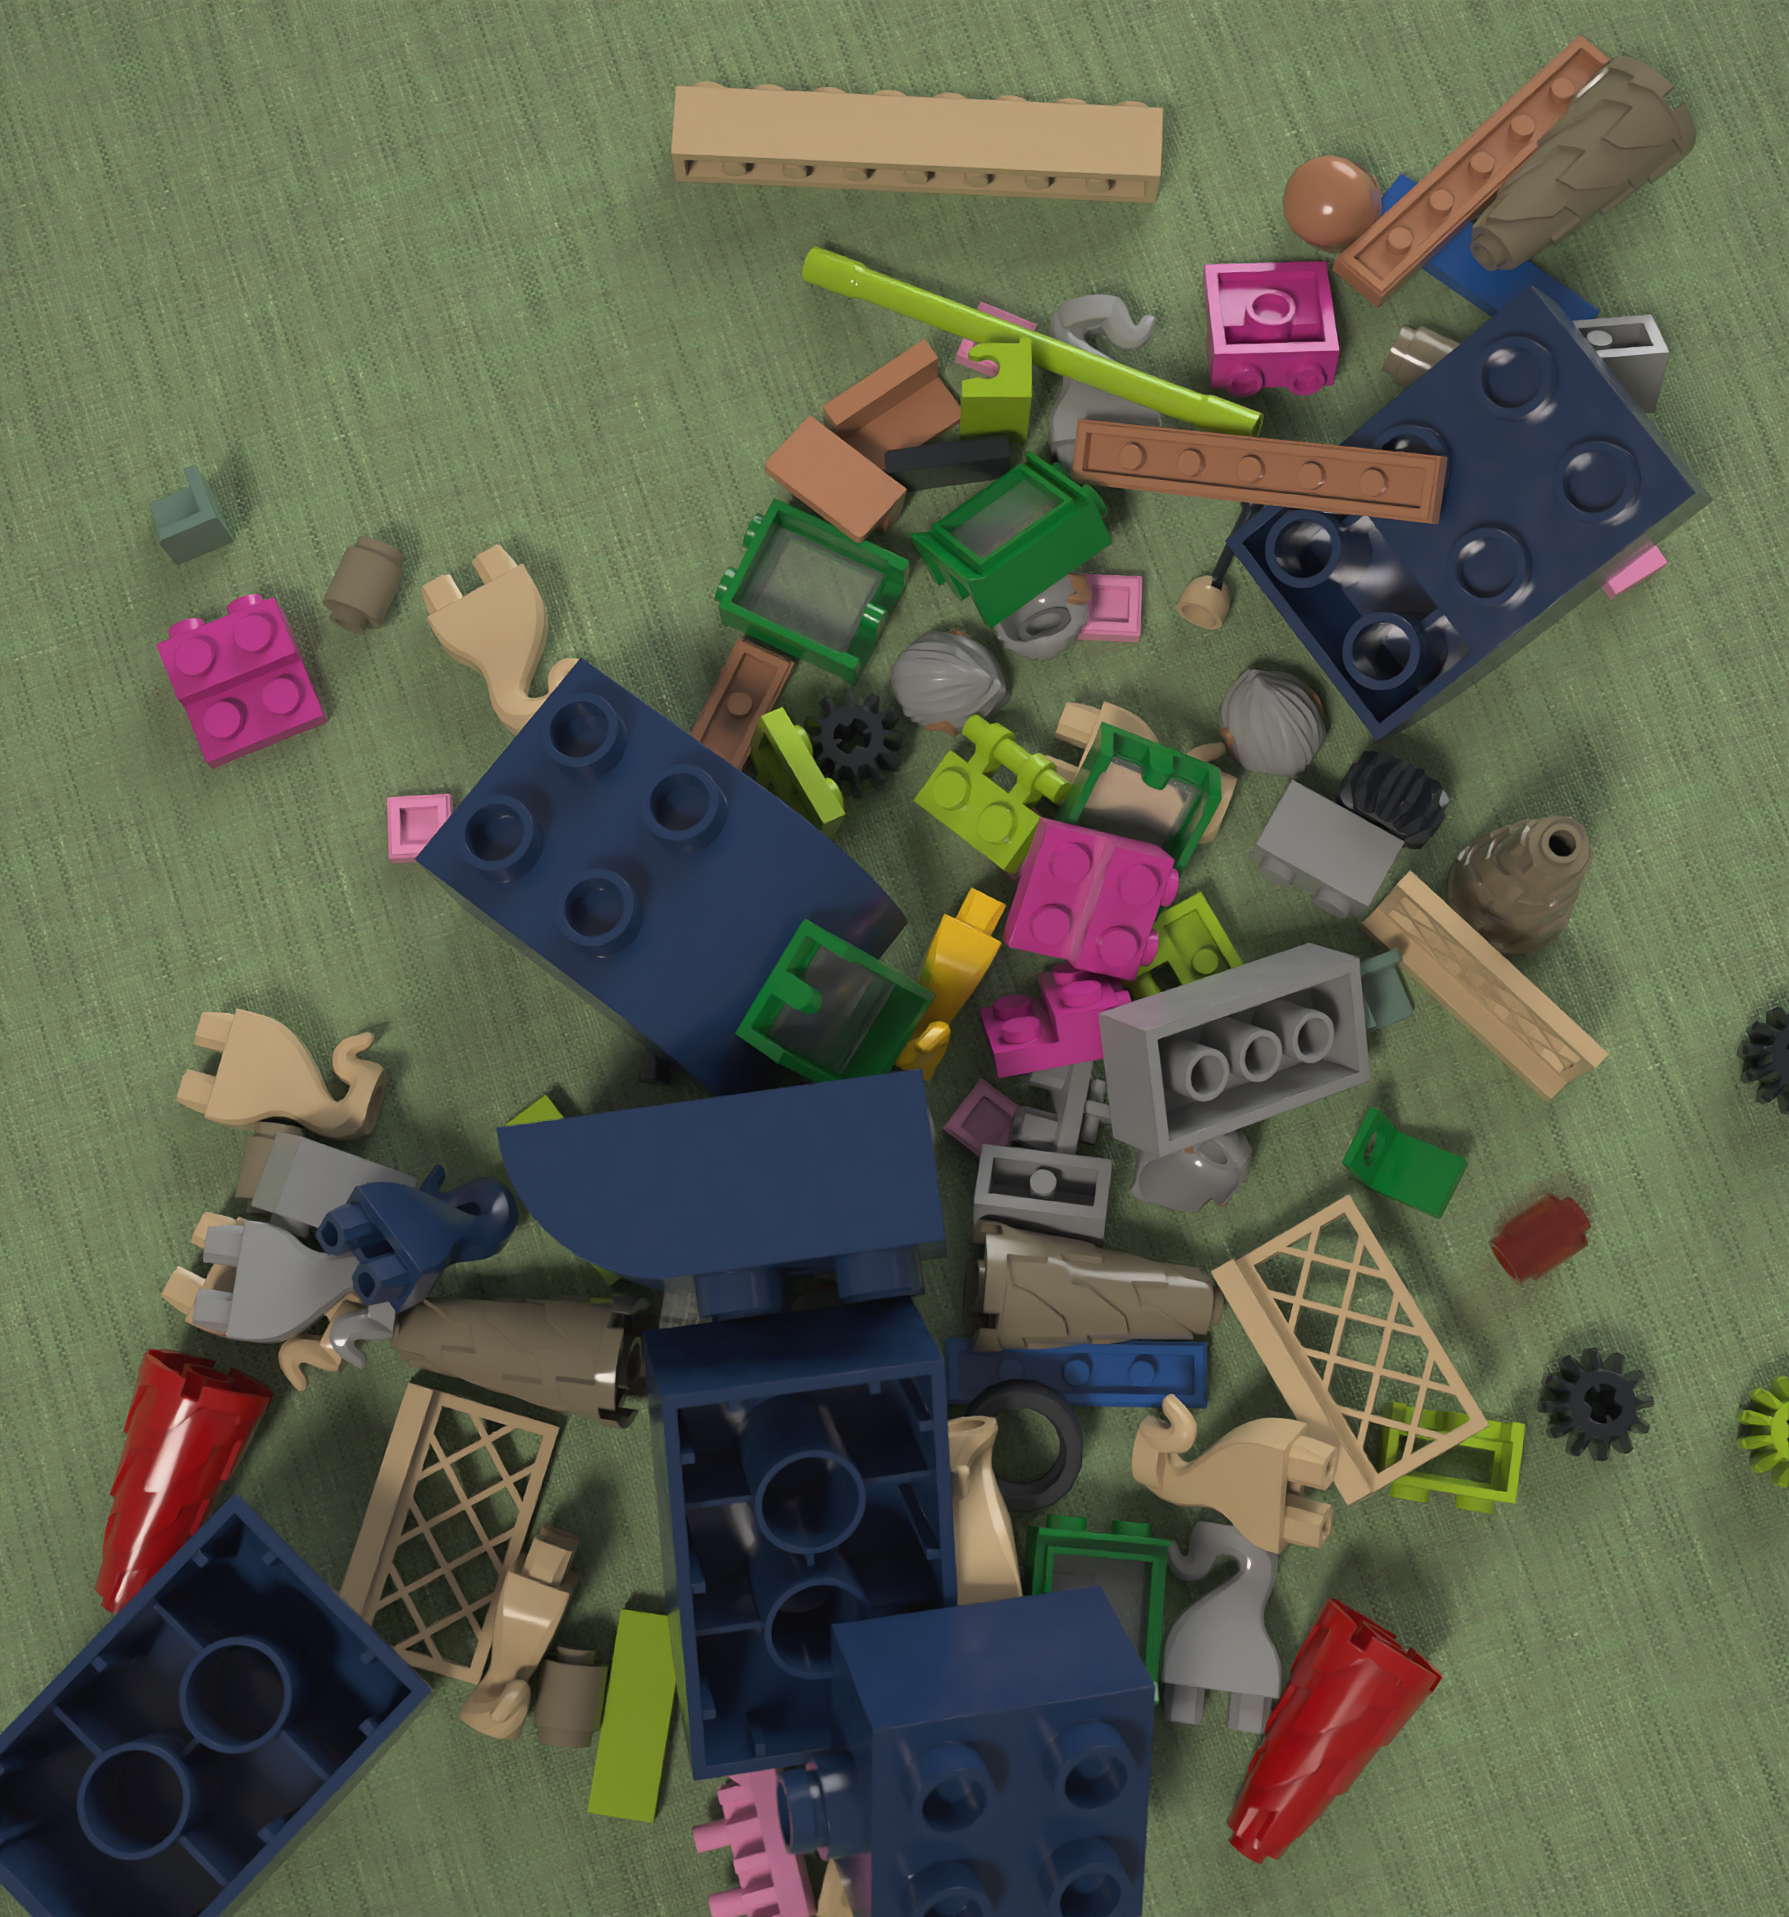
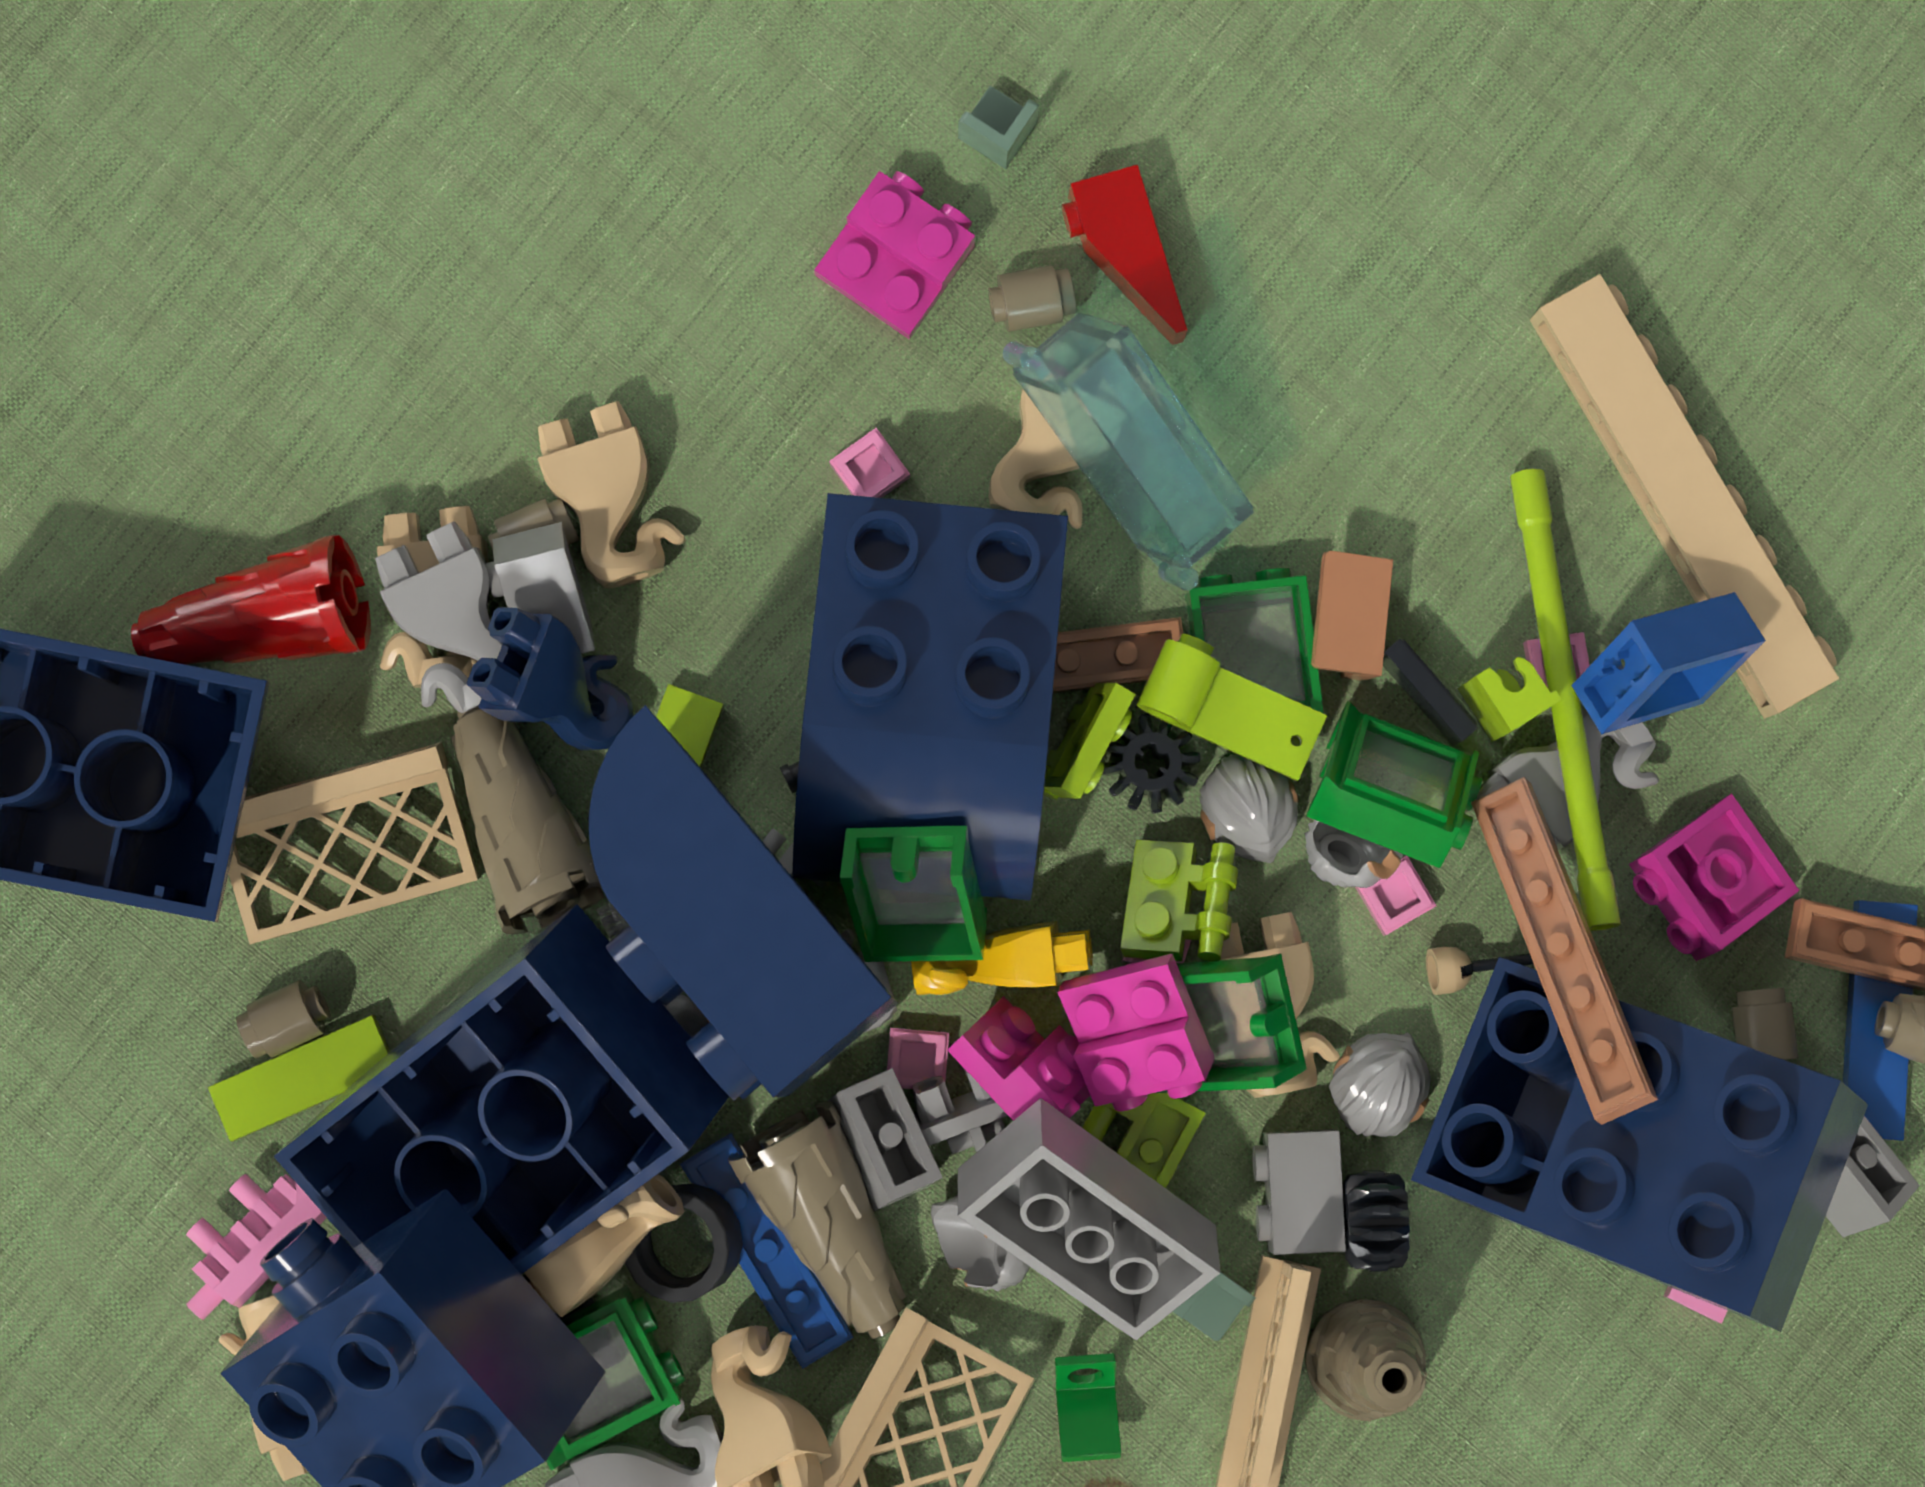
camera: 50 degrees right, 5 degrees up
(375, 475) = (1123, 241): none -> red slope
(523, 1628) = (308, 954): tan hips -> none
(552, 564) = (1132, 441): none -> clear light blue container
(850, 638) = (1228, 709): none -> lime door
(894, 406) = (1445, 621): nougat panel -> none
(1059, 227) = (1669, 662): none -> blue window
(1331, 202) = (1849, 865): nougat helmet -> none

